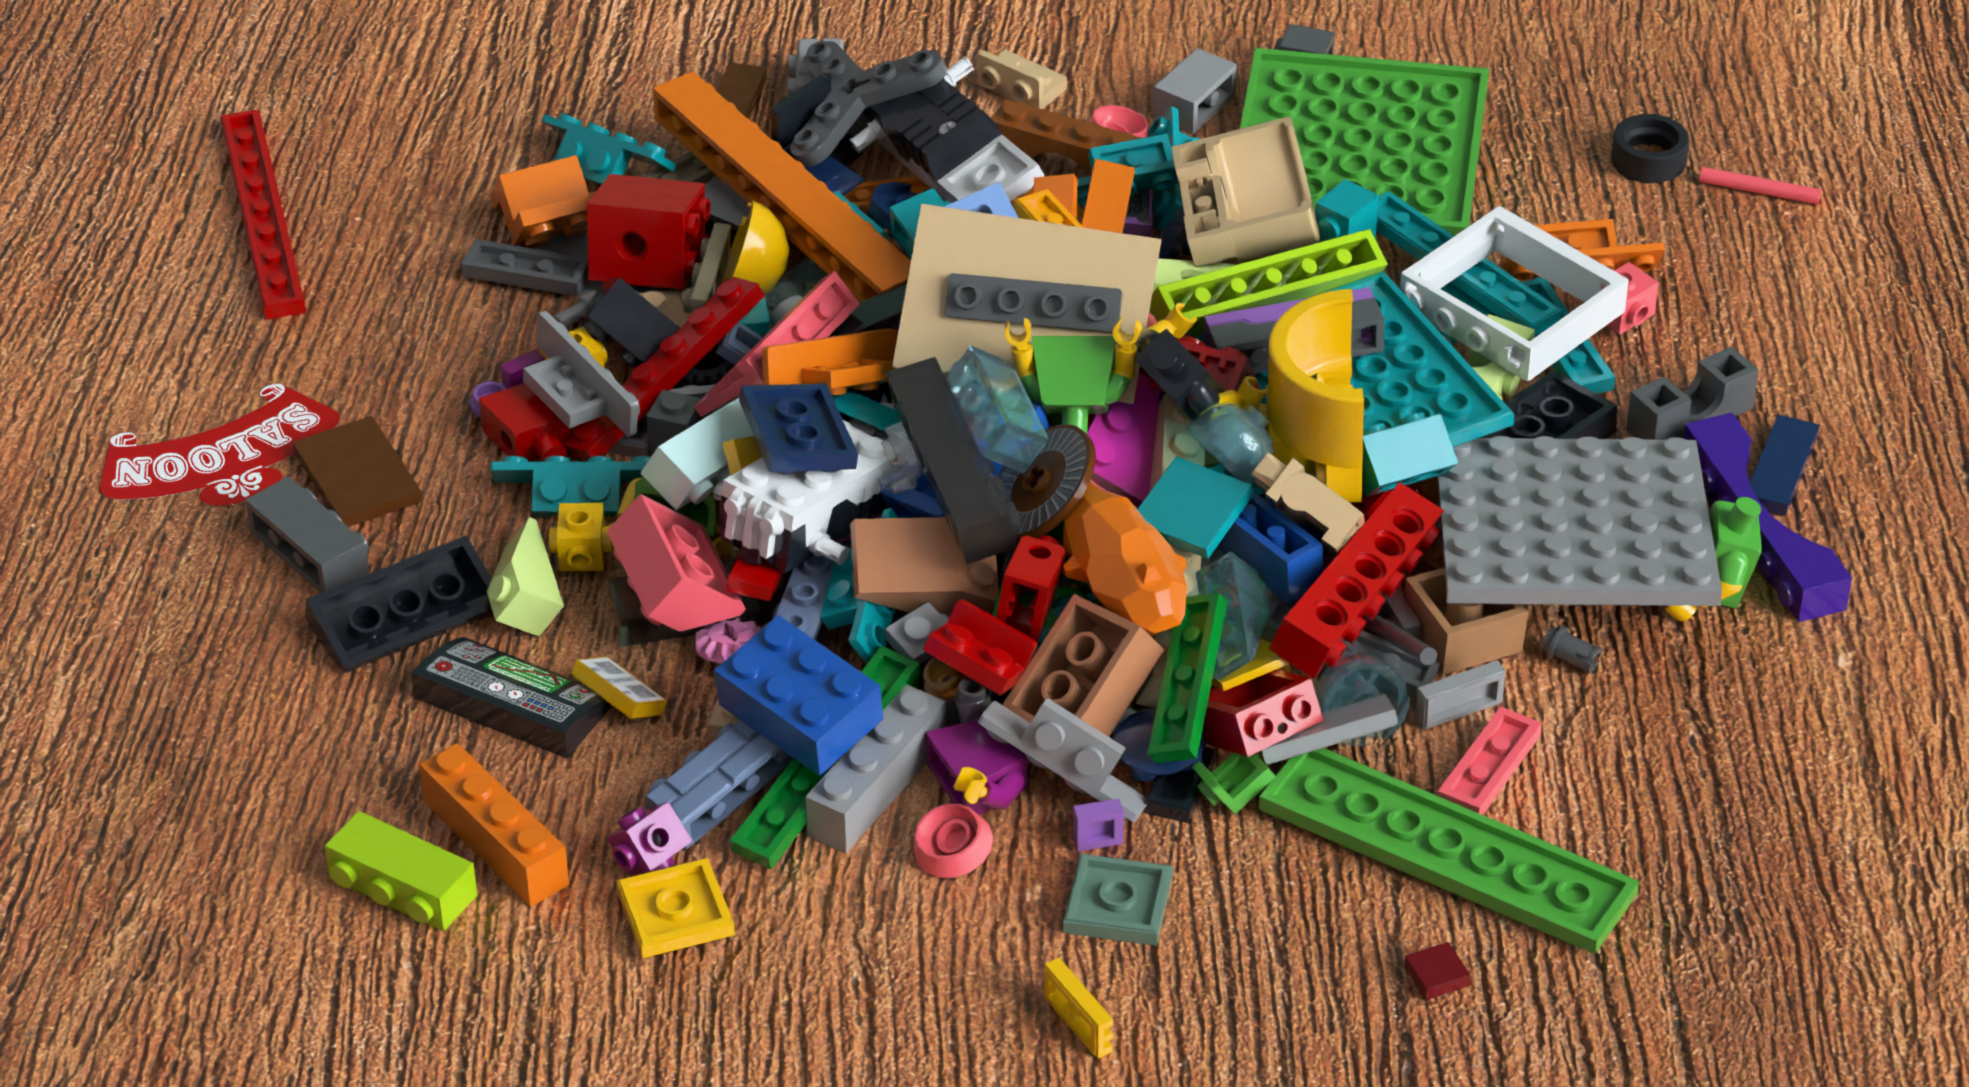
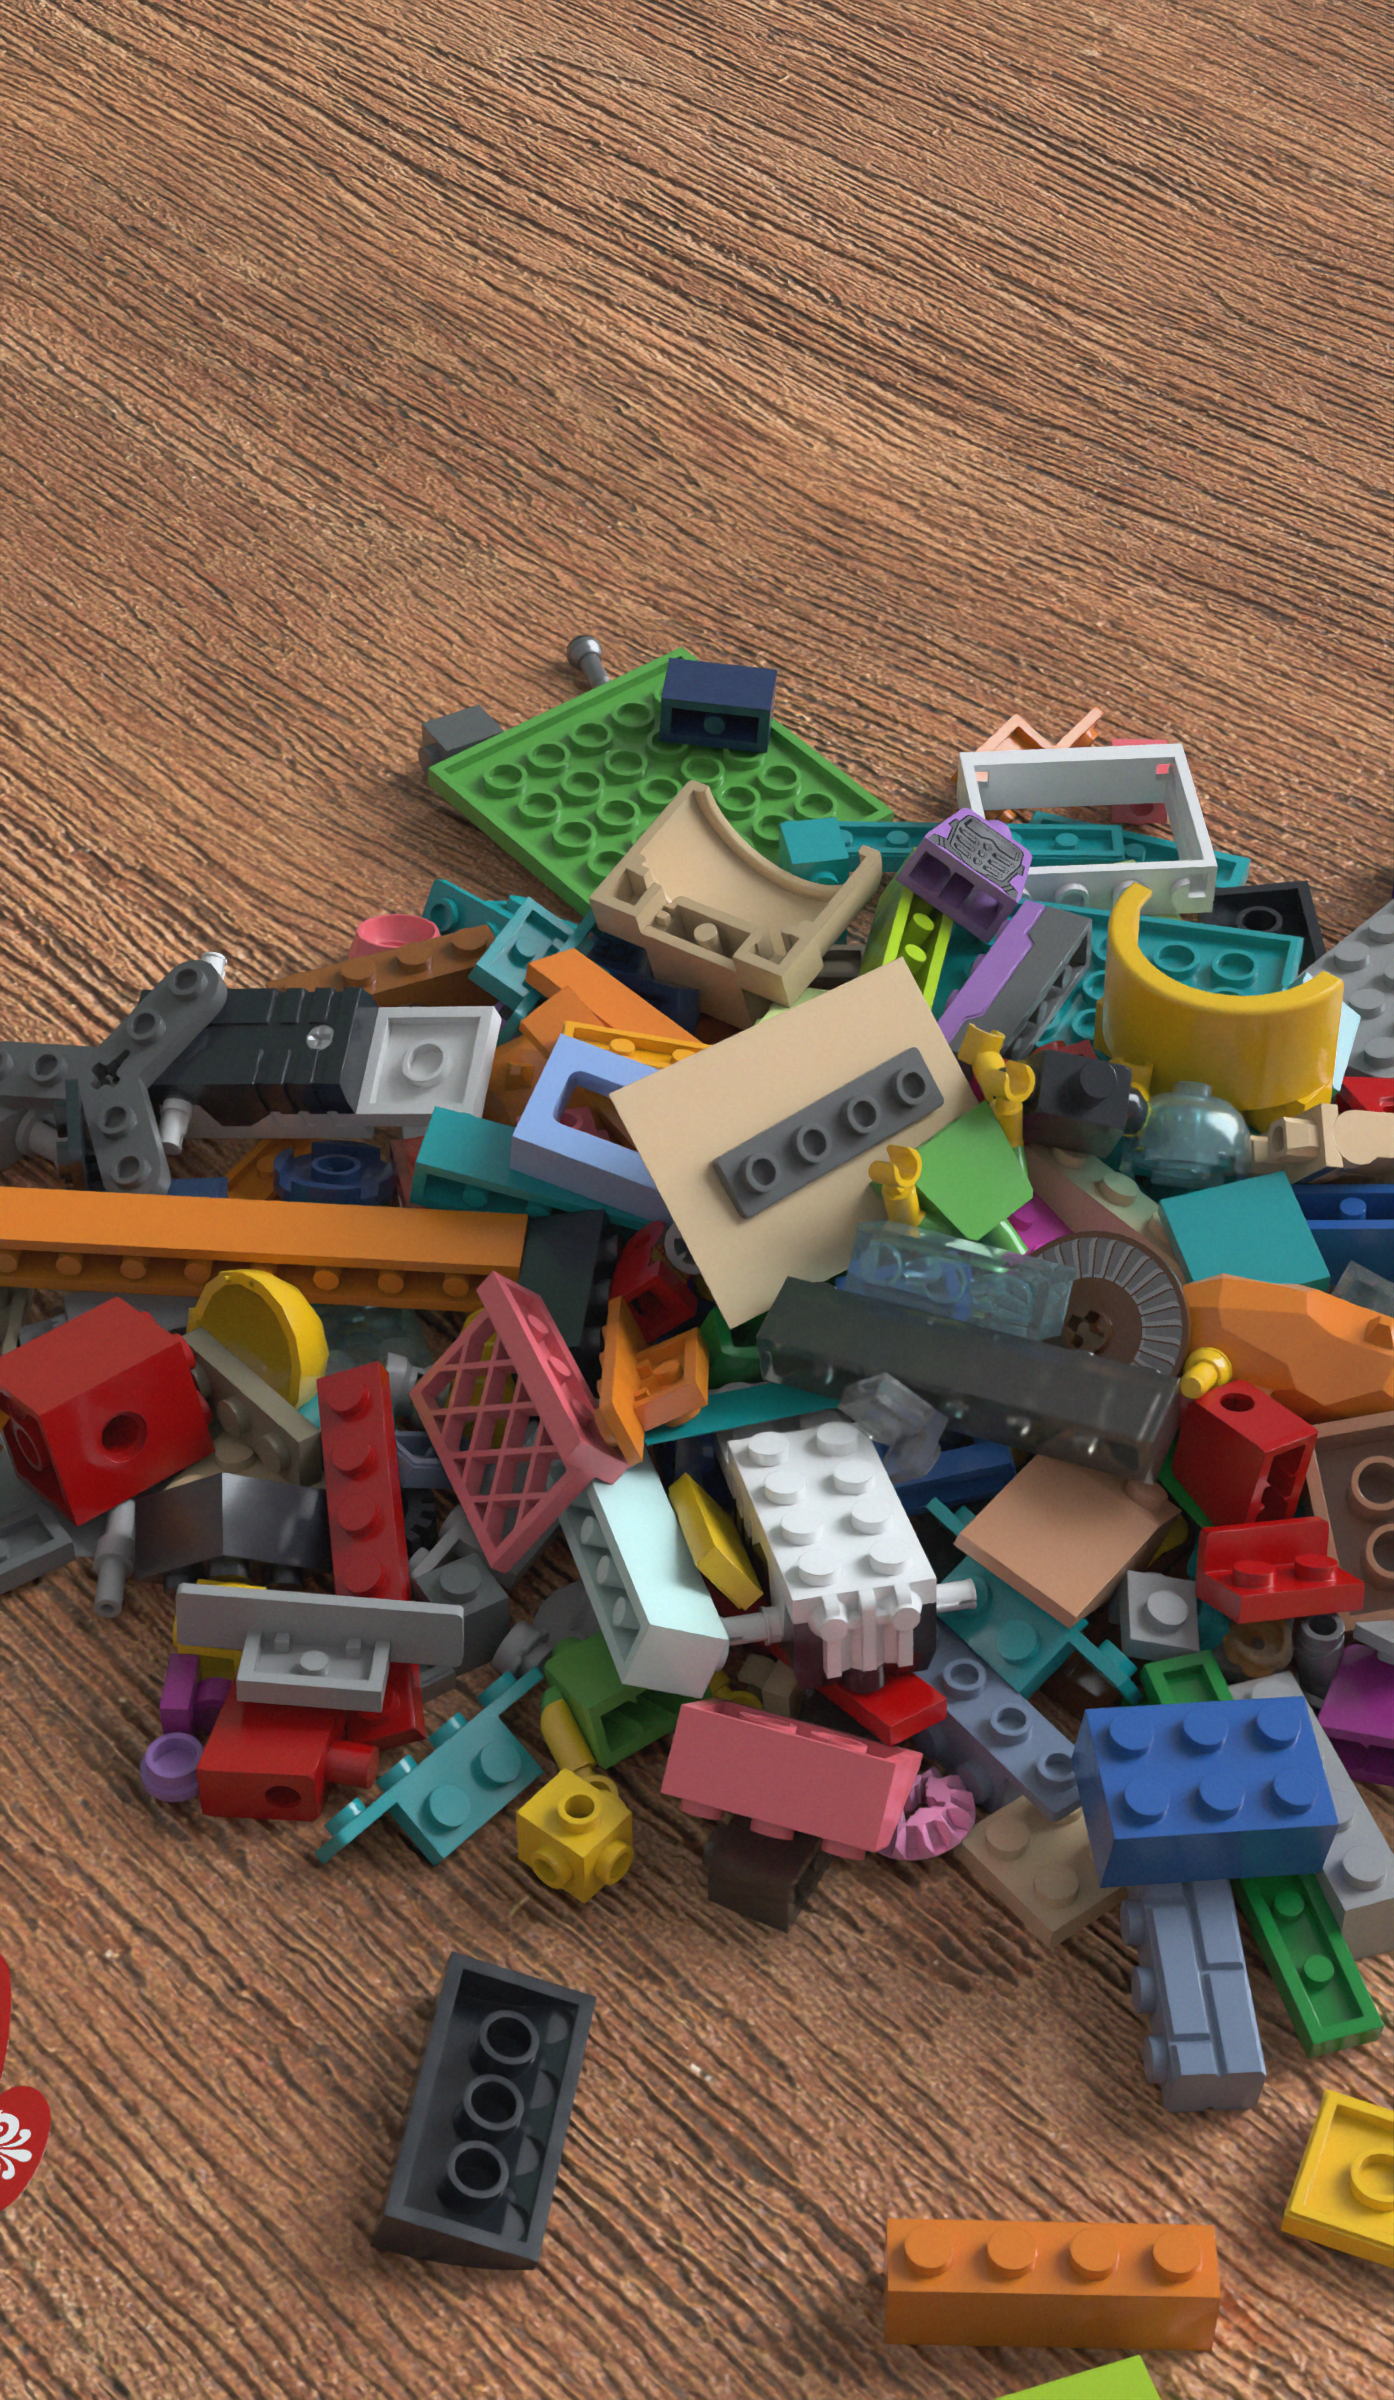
camera: 50 degrees left, 0 degrees up
(307, 535) = (224, 2134): dark grey brick -> none
(357, 471) = (139, 1998): reddish brown tile -> none
(509, 695) = (780, 2106): slope -> none
(524, 584) = (584, 1943): yellowish green slope -> none
(618, 687) = (893, 1980): tile -> none
(648, 839) = (1245, 2128): magenta brick -> none
(798, 428) = (775, 1472): dark blue plate -> none
(1019, 78) = (238, 947): tan bracket -> none
(1055, 532) = (1204, 1371): none -> yellow piece
(1196, 88) = (409, 851): light grey brick -> none
(1373, 253) = (969, 871): none -> medium lavender torso
(1442, 107) = (717, 705): none -> brick
(1459, 47) = (586, 655): none -> flat silver piece
(1653, 166) = (917, 657): black tyre -> none
(1721, 386) = (1355, 832): dark grey arch -> none
(1760, 185) = (1046, 612): coral bar -> none

